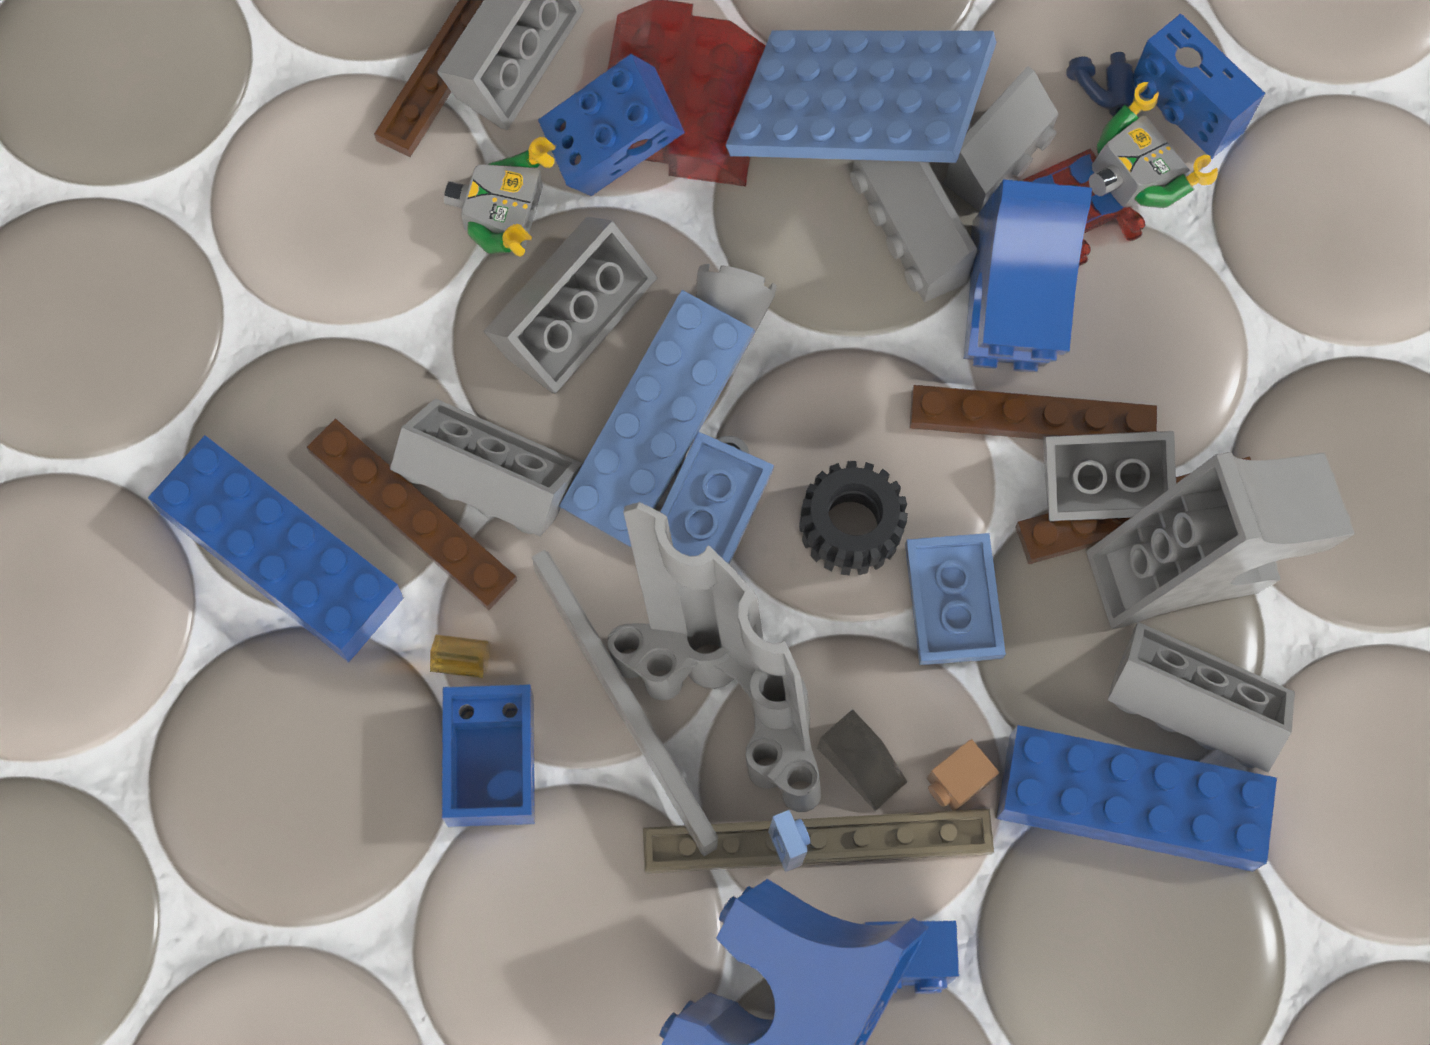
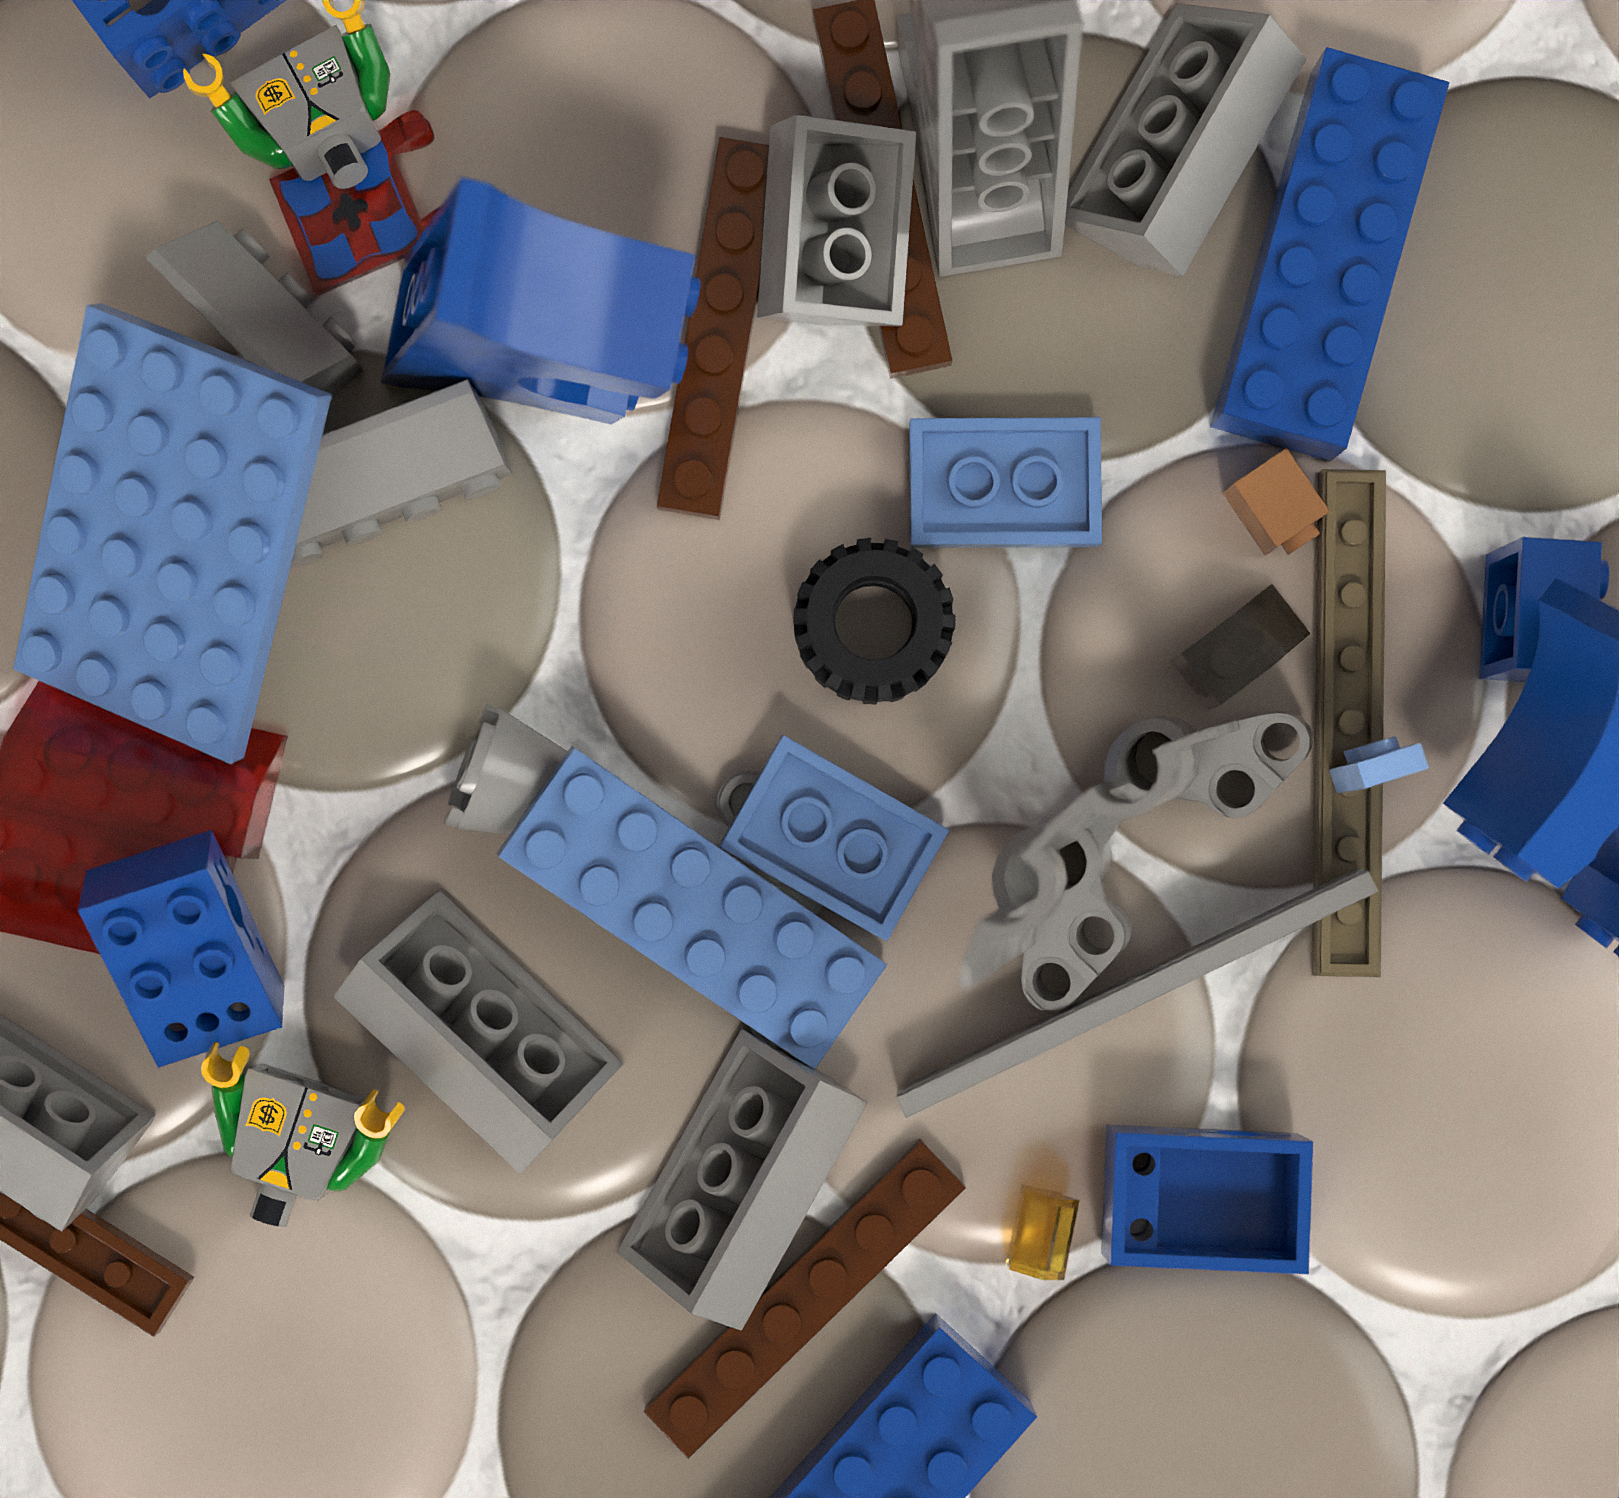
camera: 80 degrees left, 15 degrees up
(1118, 79) = (161, 115): dark blue plant -> none

